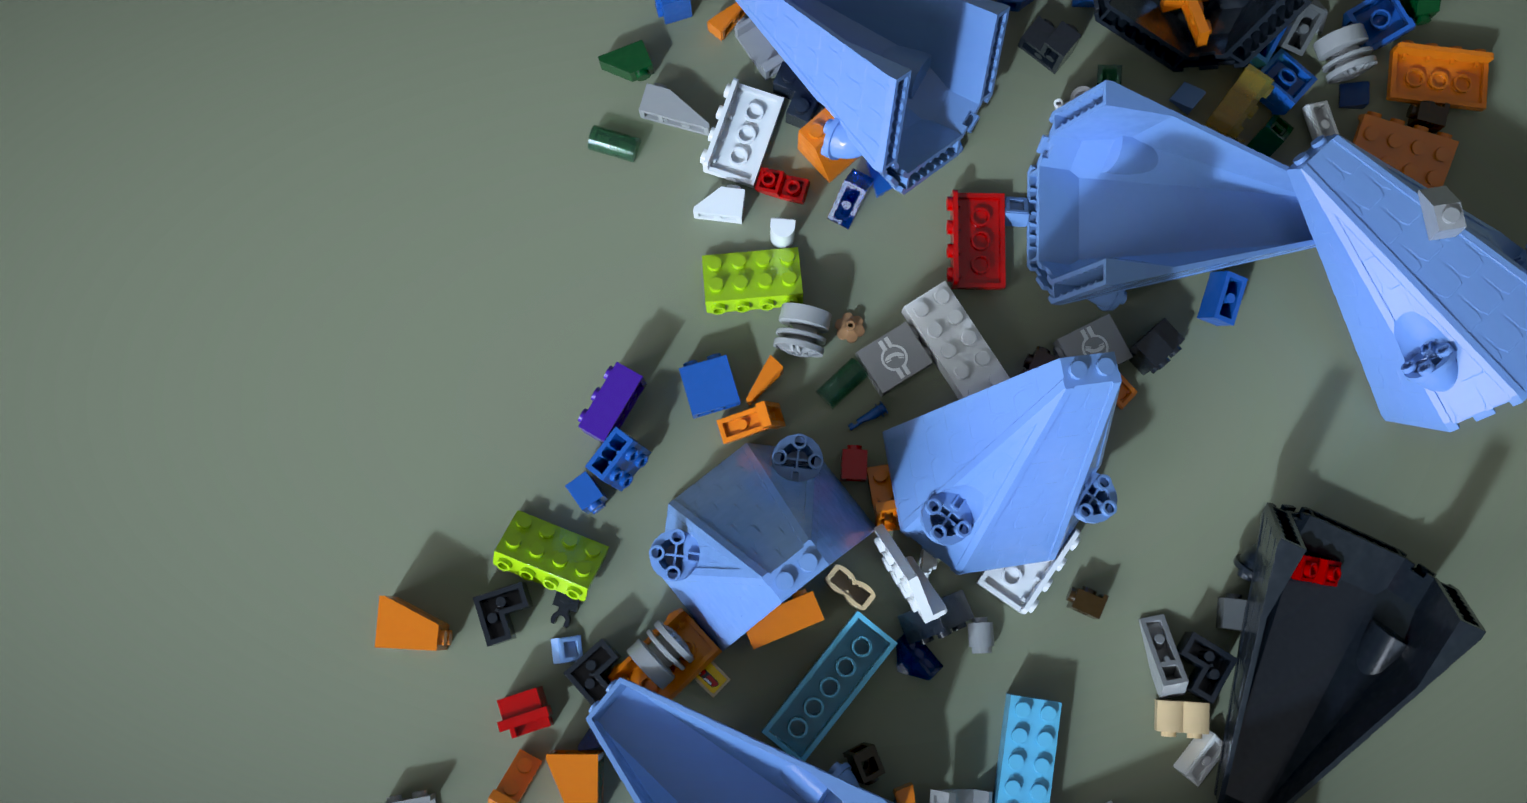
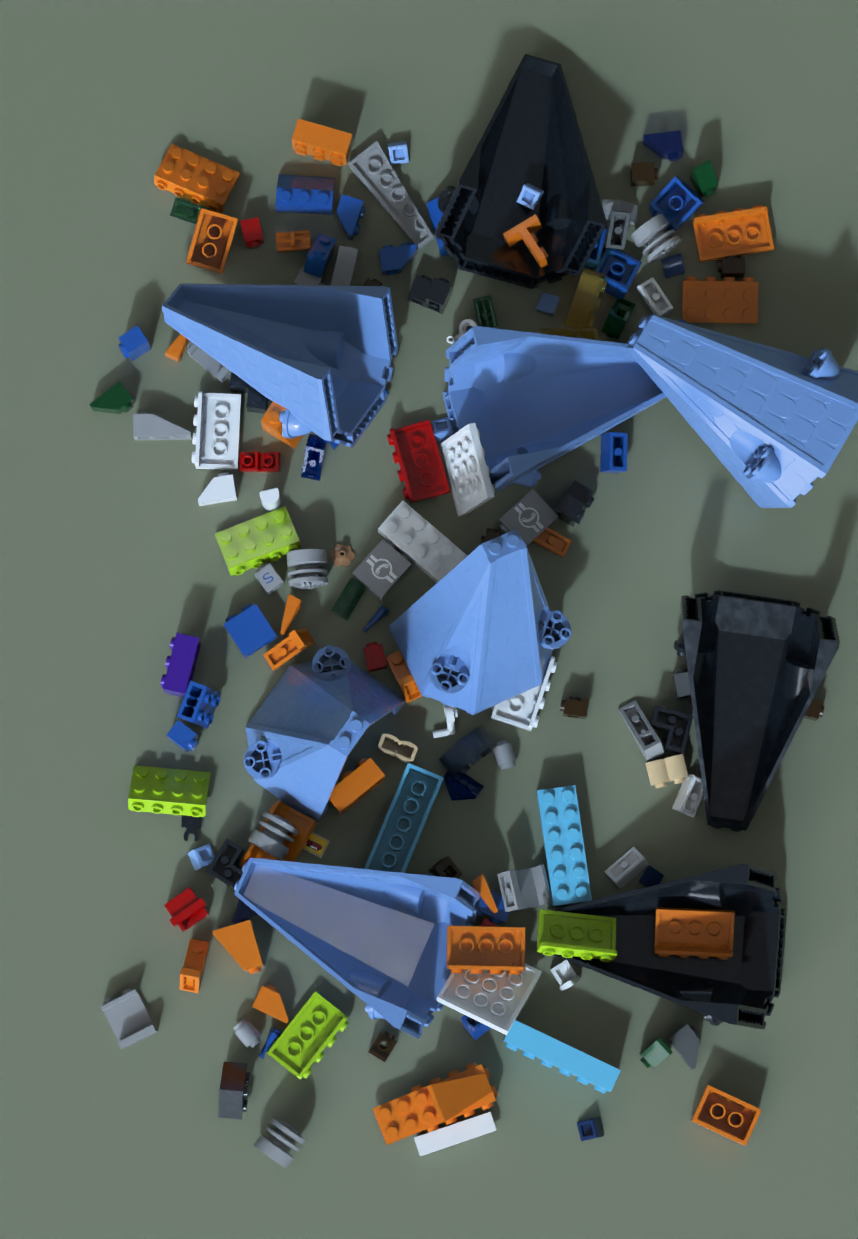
camera: 20 degrees left, 0 degrees up
(408, 627) = (82, 874): orange slope -> none
(495, 611) = (141, 841): black brick -> none
(613, 143) = (121, 466): clear green brick -> none
(751, 329) = (268, 578): none -> light grey brick
(909, 578) = (437, 726): white bracket -> none
(1037, 265) = (467, 469): none -> white plate
(1318, 571) = (734, 634): red slope -> none
(1441, 213) = (736, 354): light grey slope -> none

